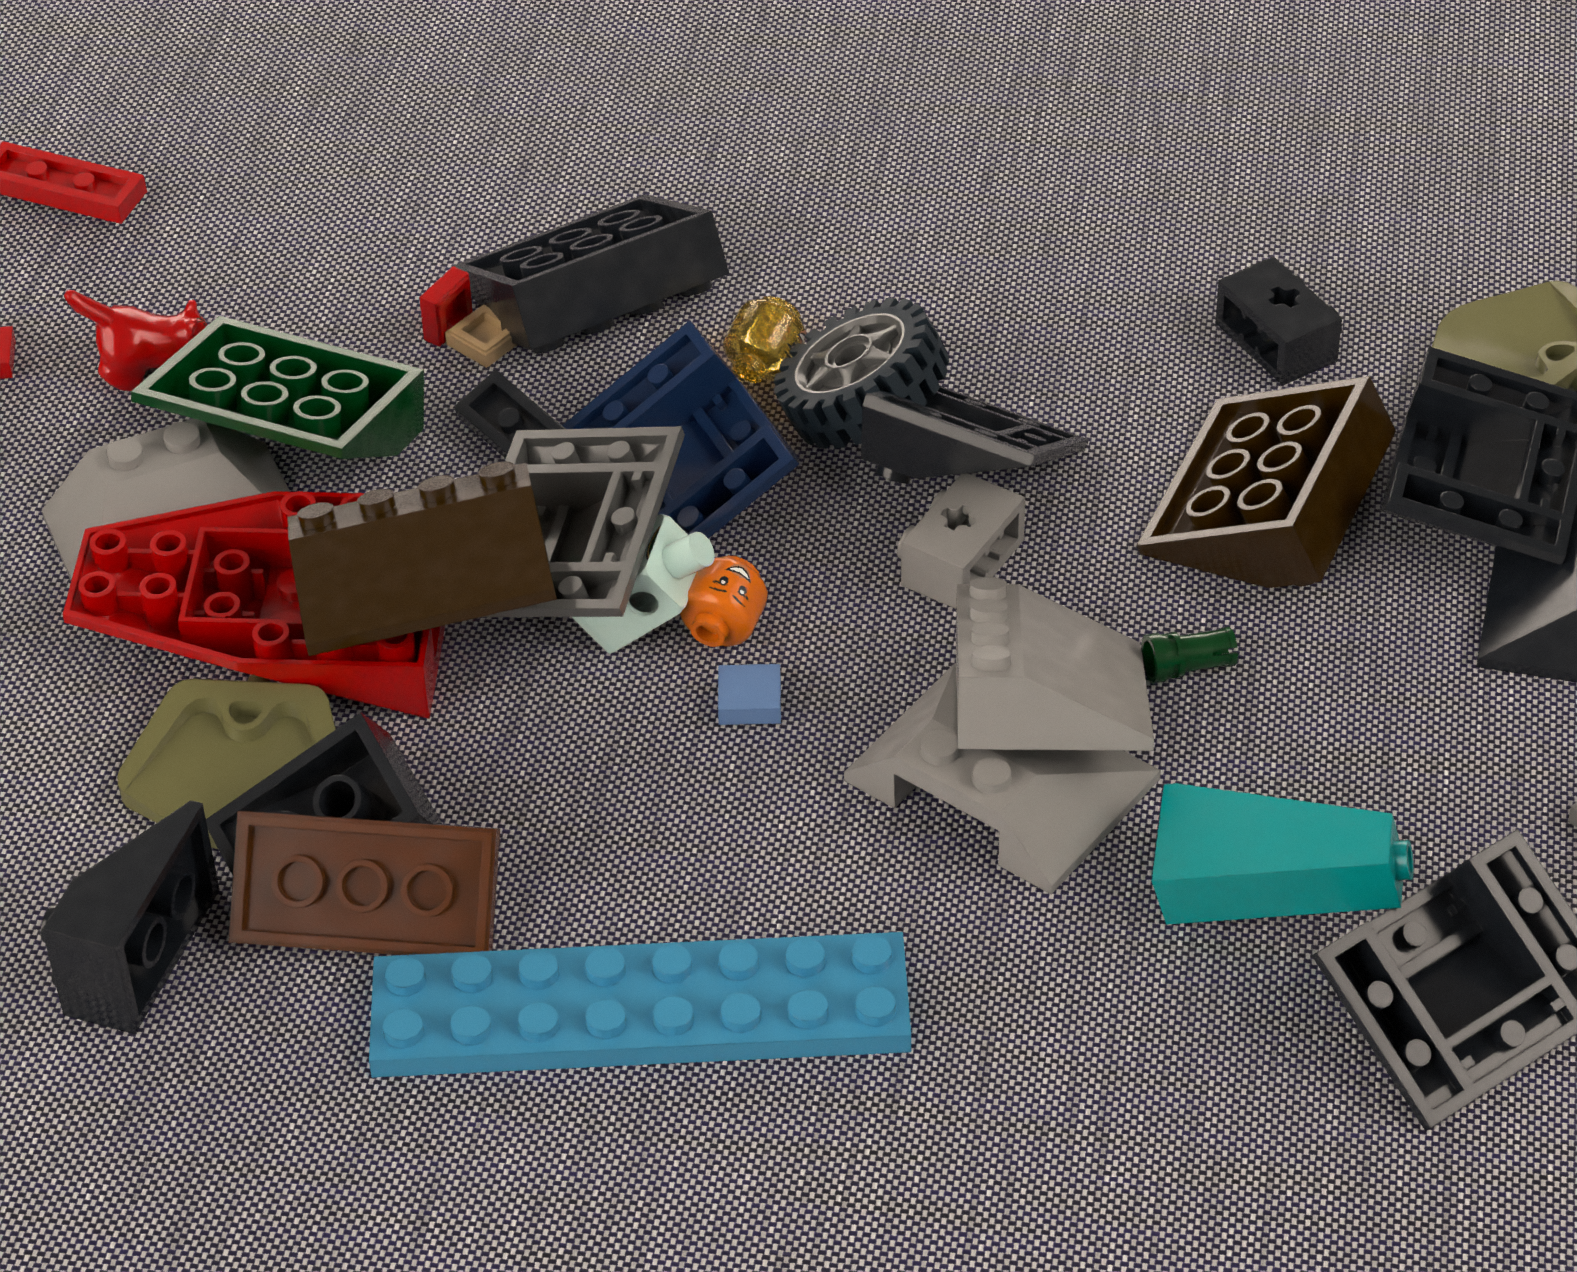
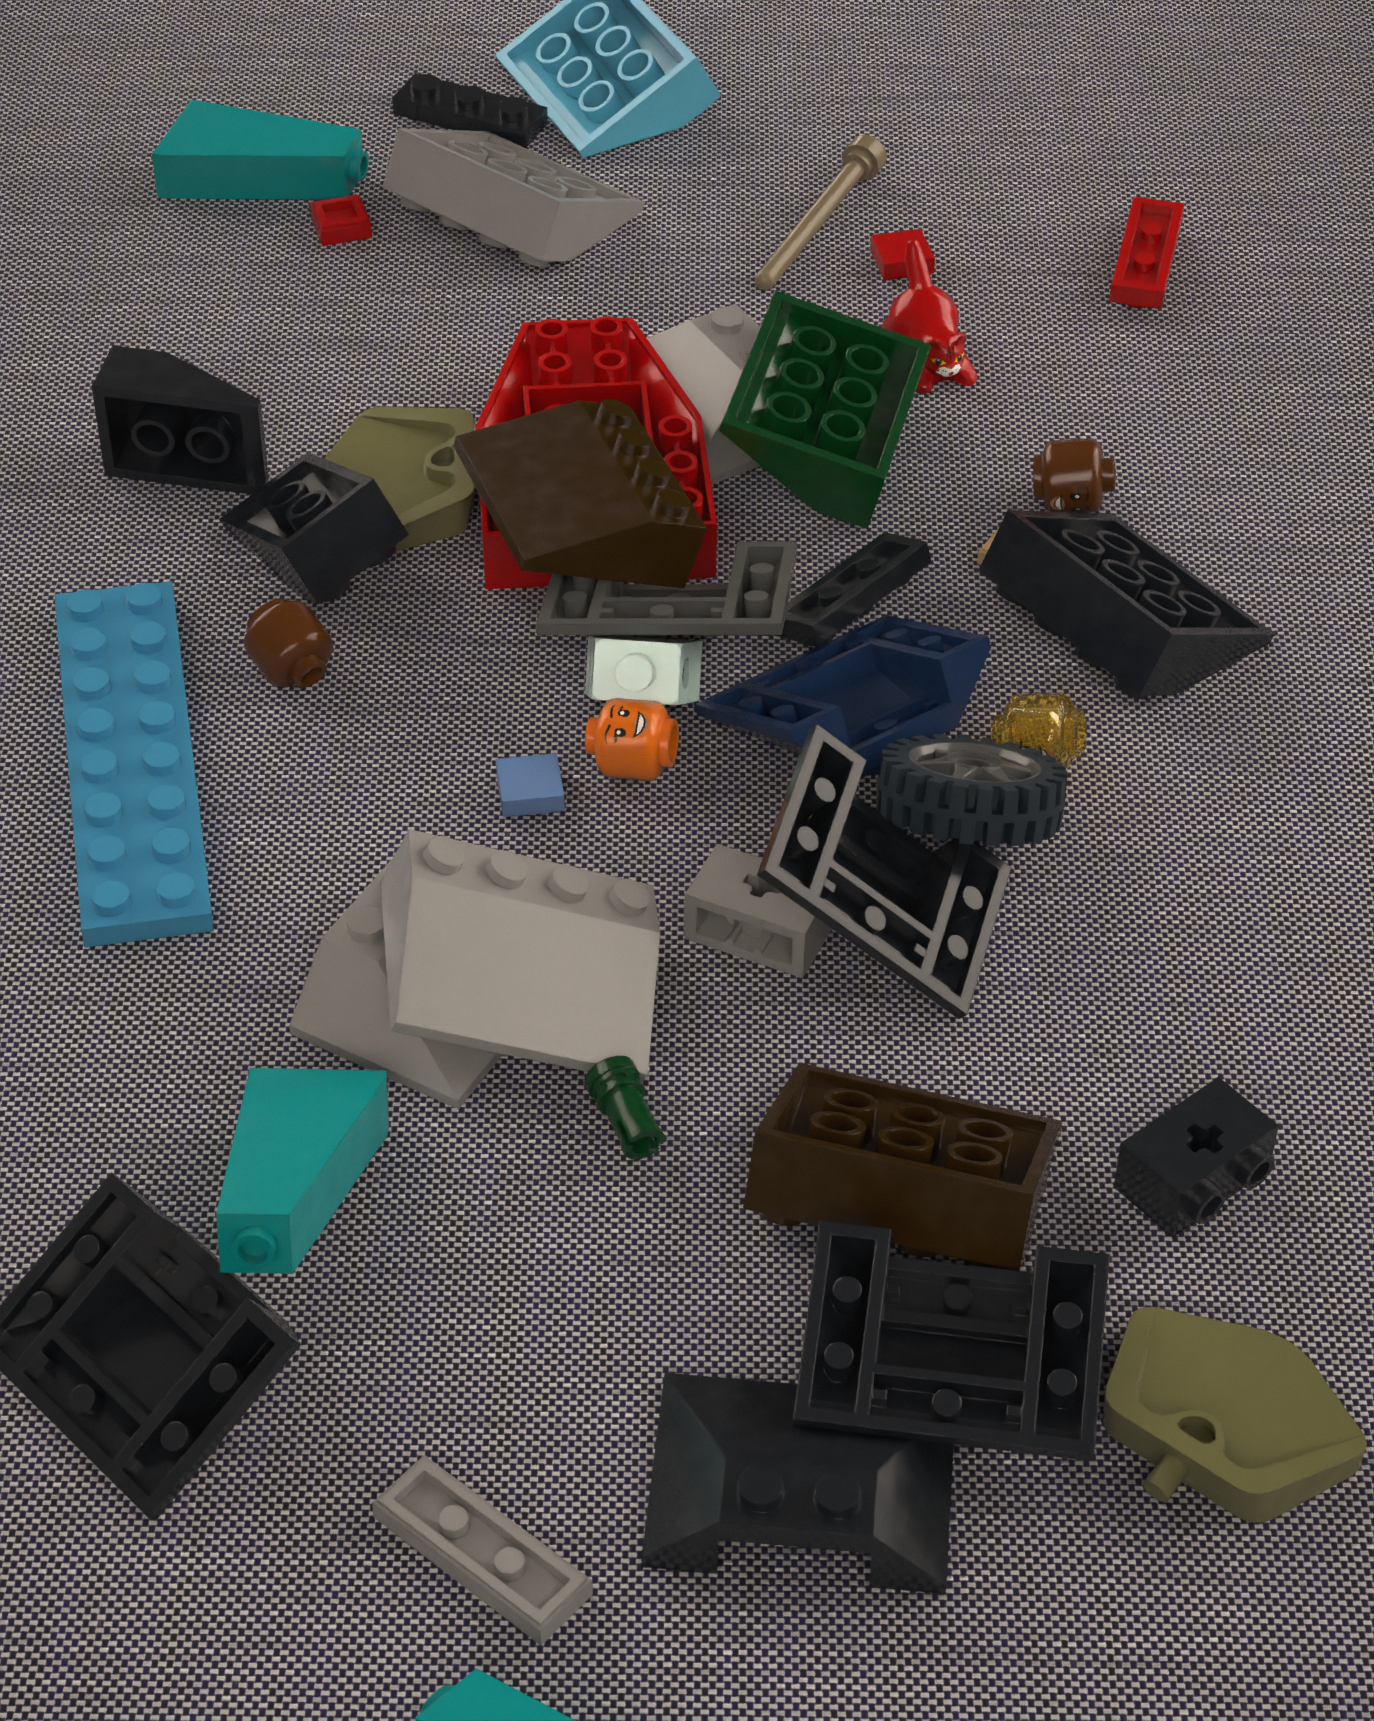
camera: 80 degrees right, 0 degrees up
(363, 884) = (231, 552): reddish brown tile -> none
(406, 269) = (1073, 475): none -> reddish brown head
(445, 305) = (1031, 495): red tile -> none
(527, 853) = (288, 643): none -> reddish brown head

